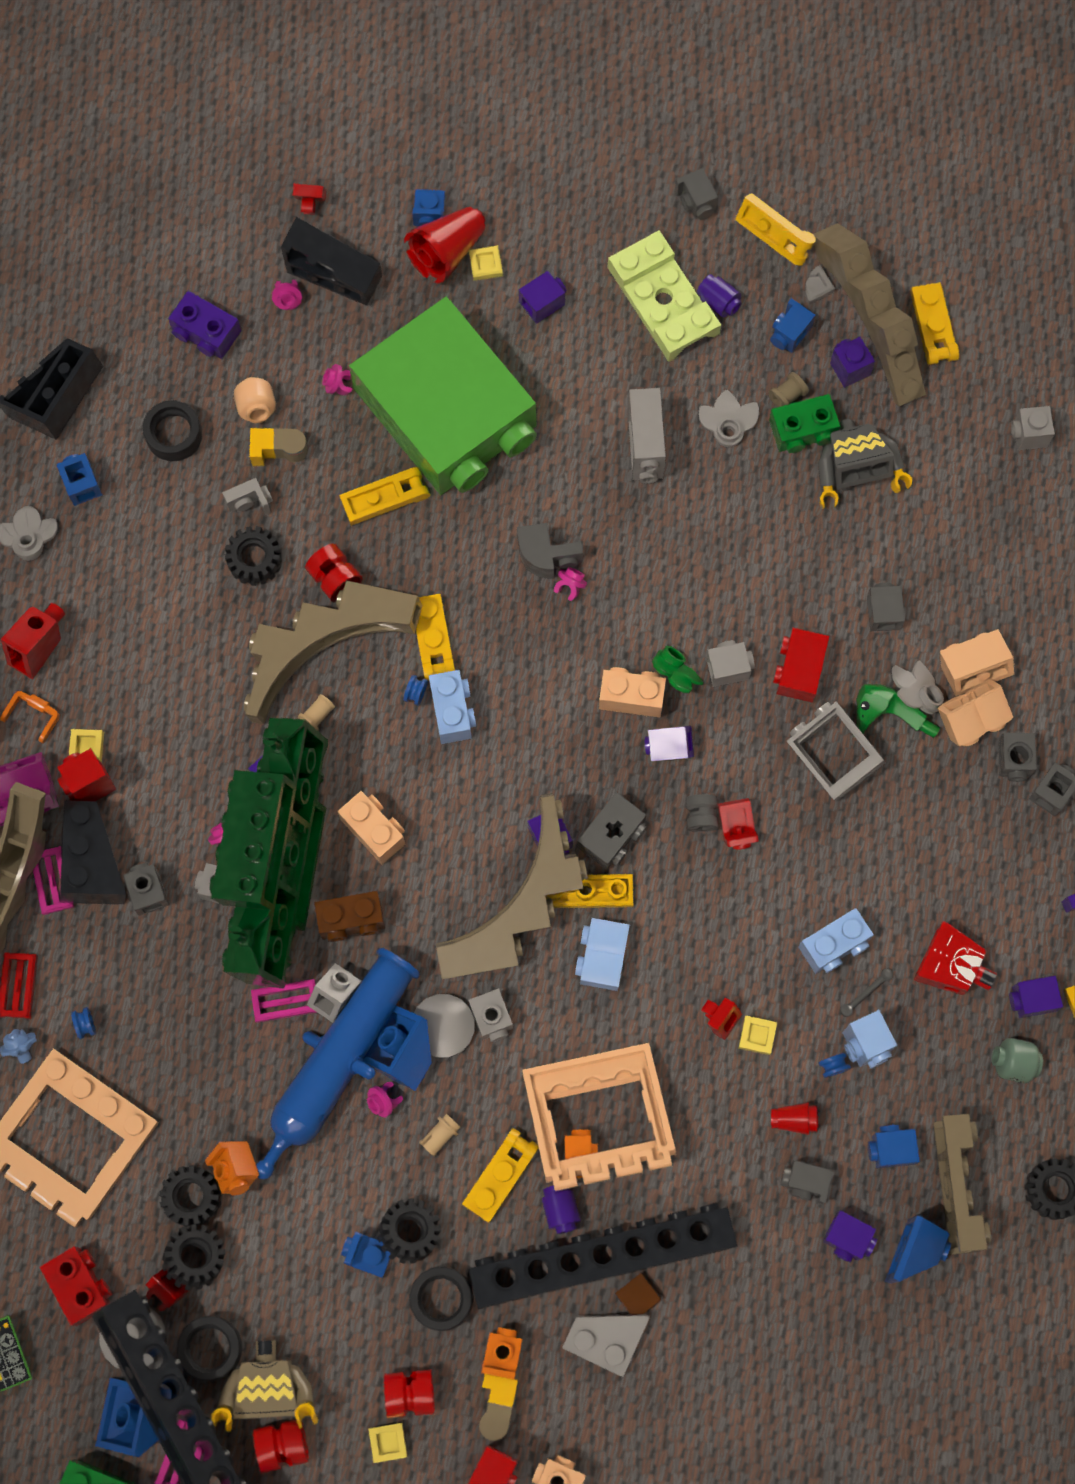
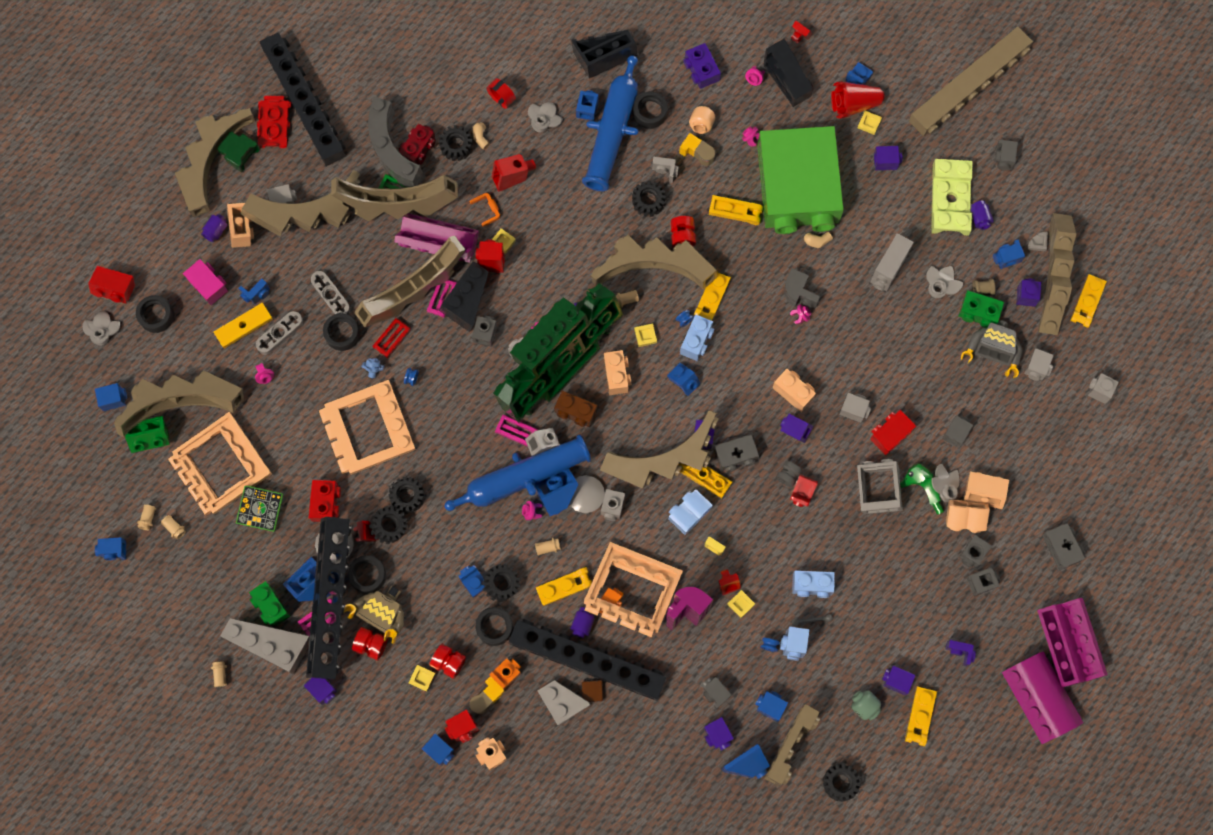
camera: 35 degrees right, 0 degrees up
(136, 490) = (612, 128): none -> blue piece
(233, 1167) = (436, 494): orange brick -> none
(376, 748) = (645, 335): none -> light yellow tile
(470, 774) = (684, 378): none -> blue bracket
(523, 469) = (817, 241): none -> tan arm
(584, 125) = (970, 81): none -> dark tan brick
(669, 979) = (714, 546): none -> light yellow tile
(671, 664) = (824, 388): green plate -> none
(697, 1083) = (690, 603): none -> magenta brick
(775, 229) = (1035, 198): yellow plate -> none
(796, 1118) = (732, 658): red cone -> none
(930, 449) = (1039, 365): none -> light grey brick
(954, 962) = (867, 634): red torso -> none

